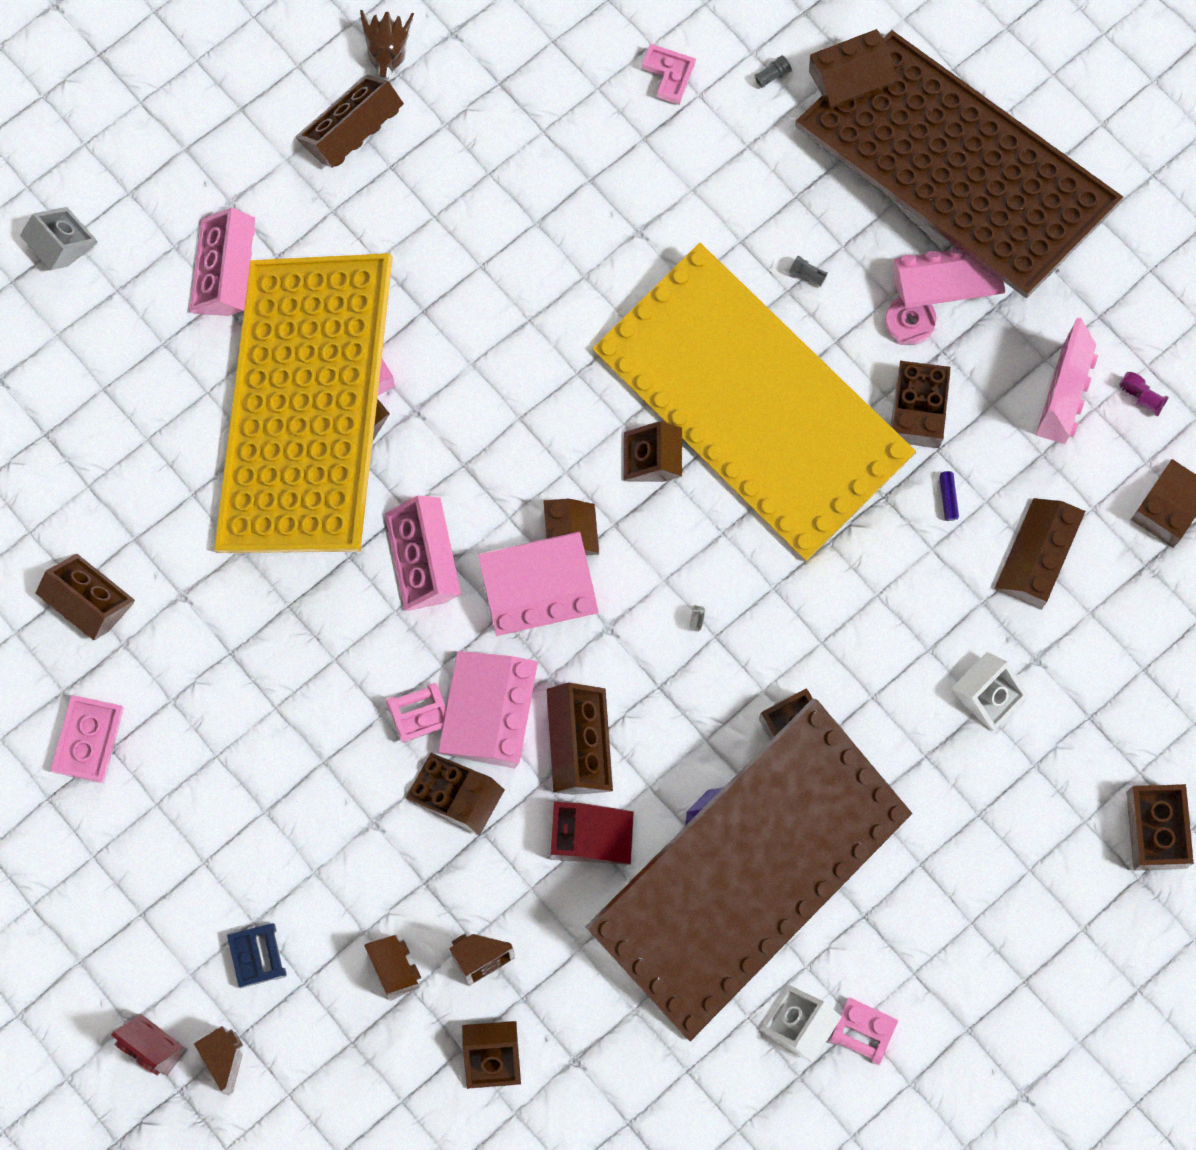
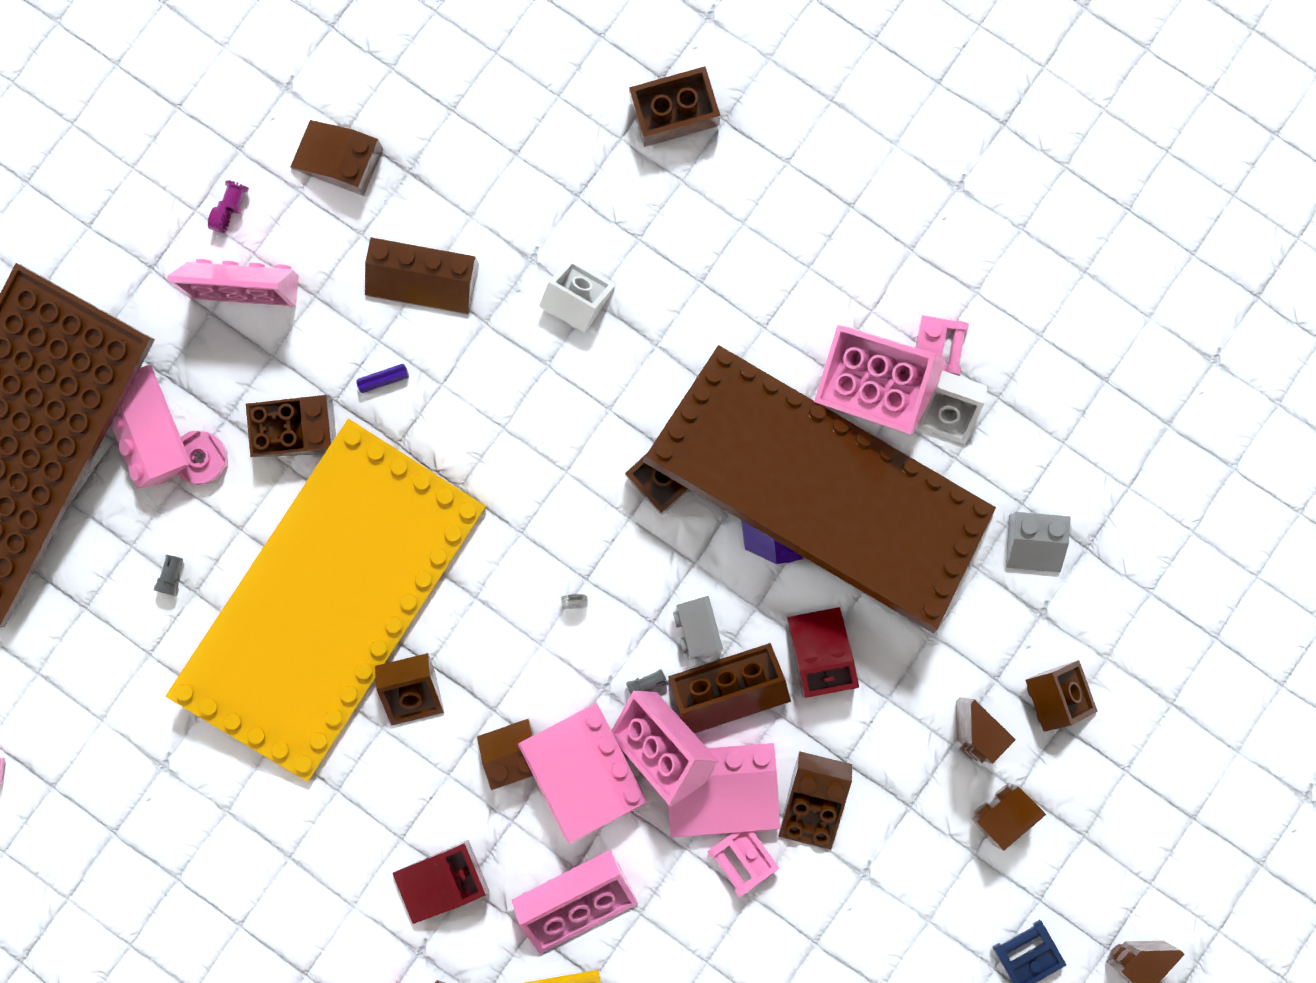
camera: 100 degrees left, 10 degrees up
(473, 442) = (441, 882): none -> dark red slope
(543, 658) = (662, 746): none -> bright pink slope
(601, 659) = (648, 683): none -> dark grey pin
(644, 725) = (698, 626): none -> light grey slope
(646, 1071) = (1037, 541): none -> light grey slope
(844, 952) = (878, 379): none -> bright pink slope

